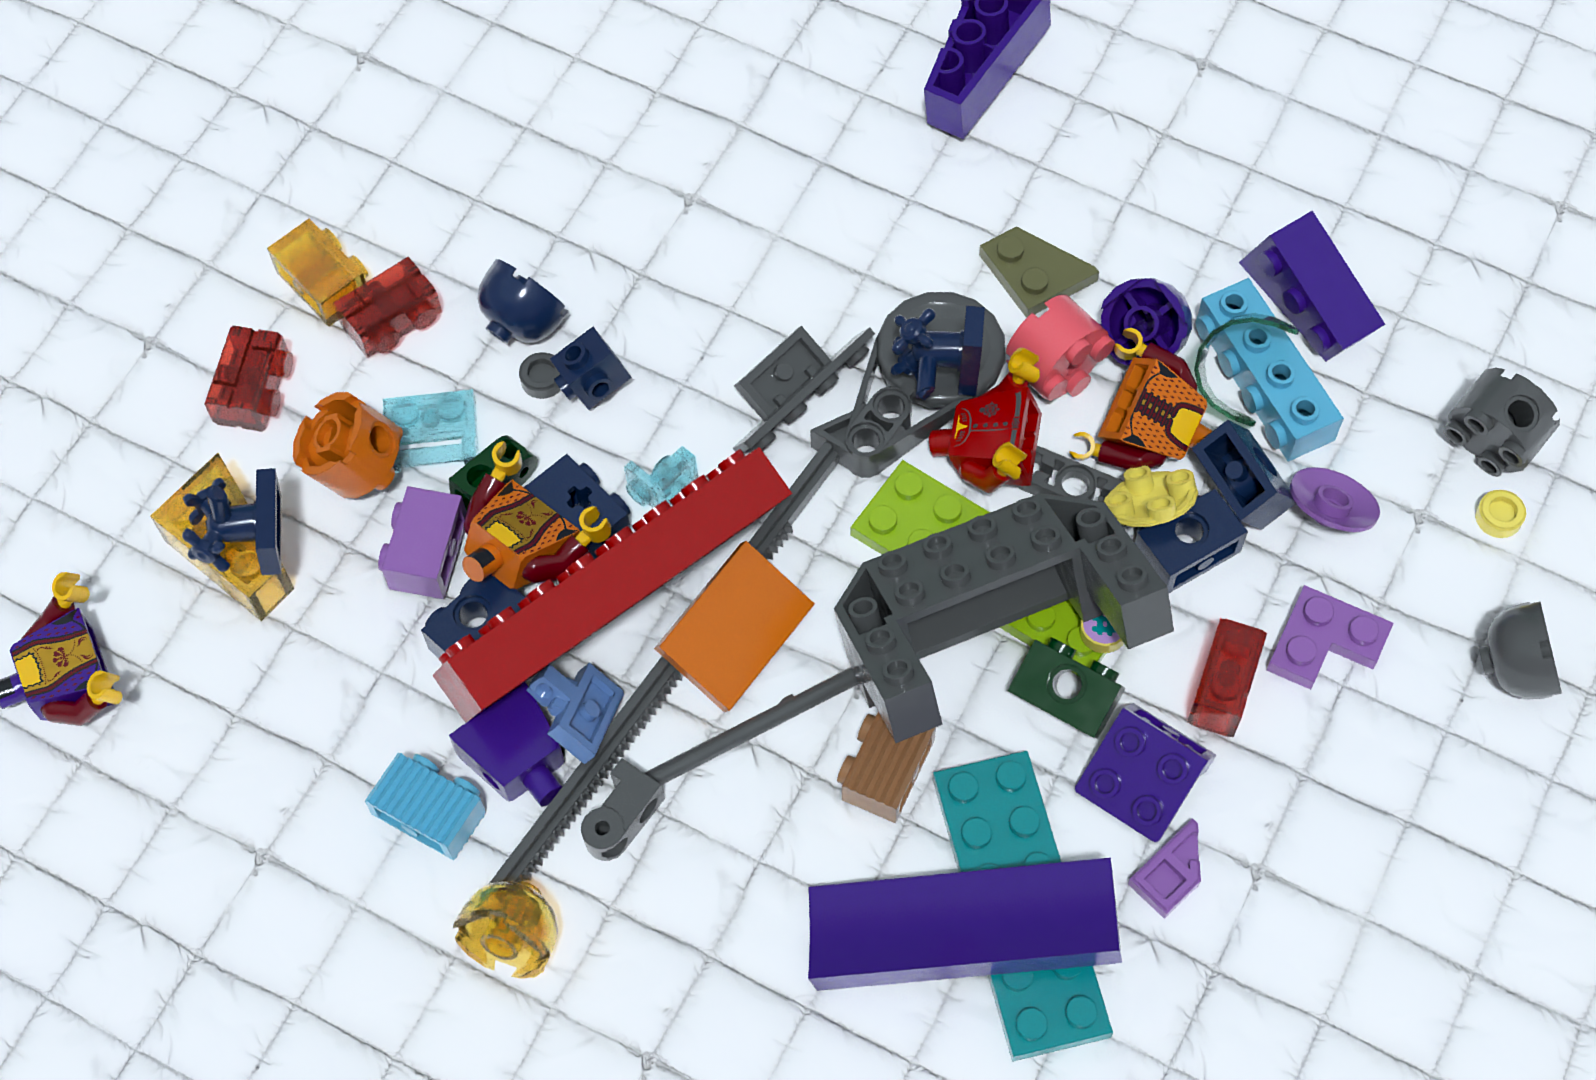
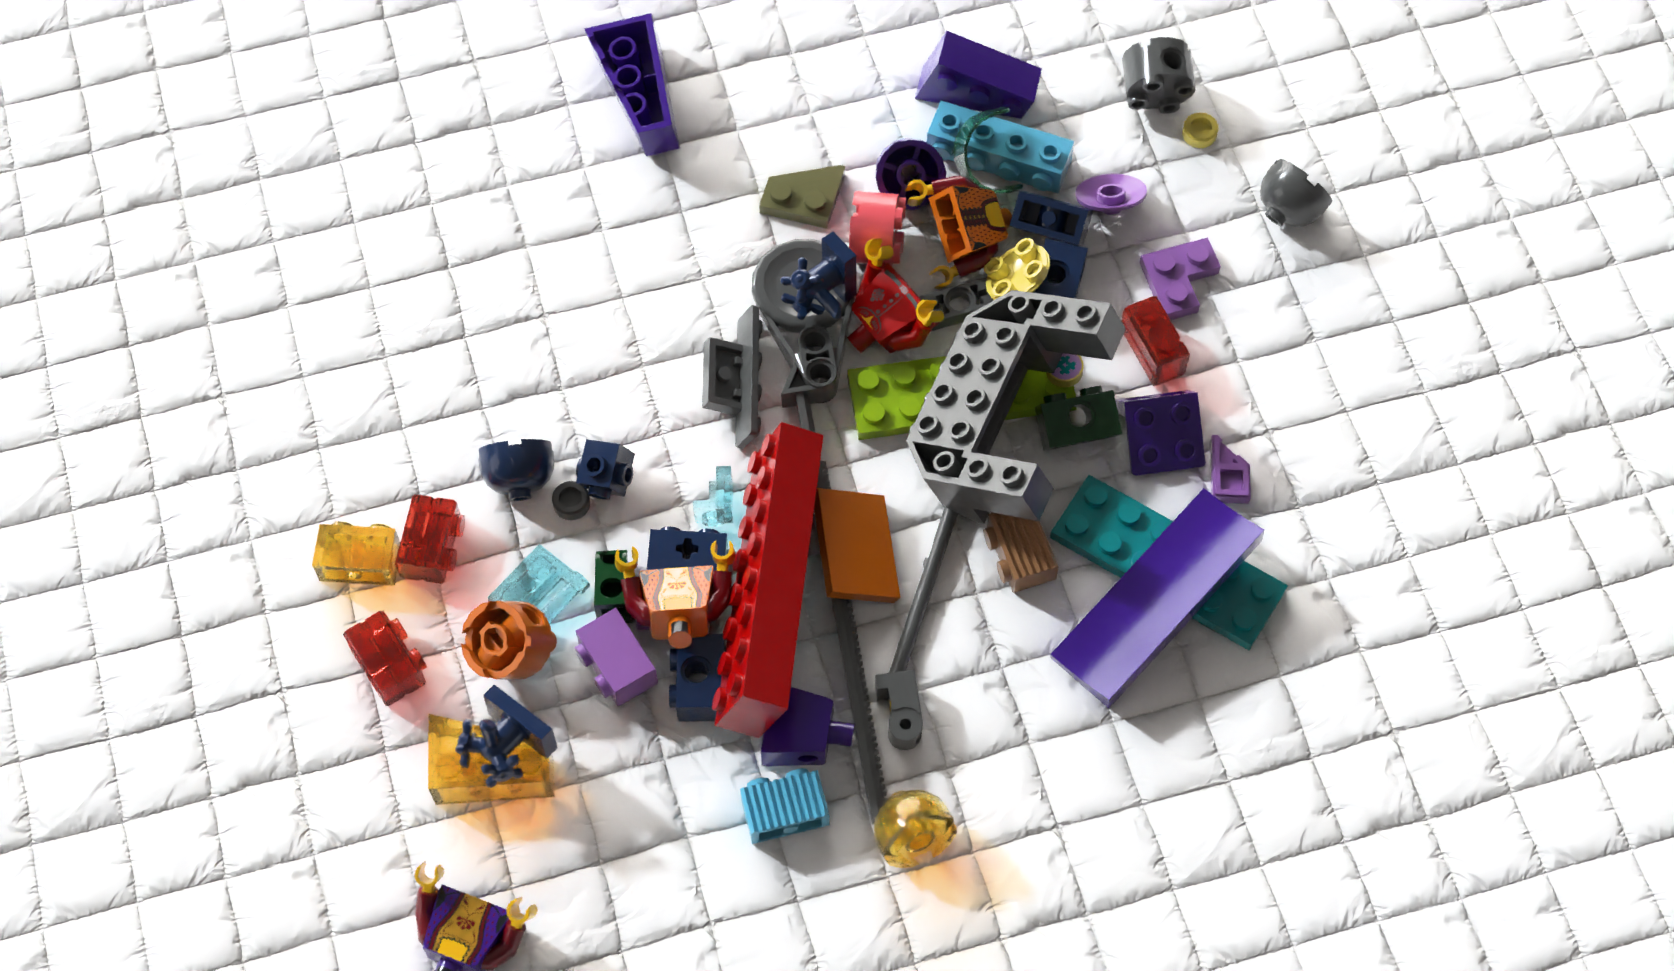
camera: 45 degrees left, 0 degrees up
(580, 706) = (820, 665): medium blue hinge -> none

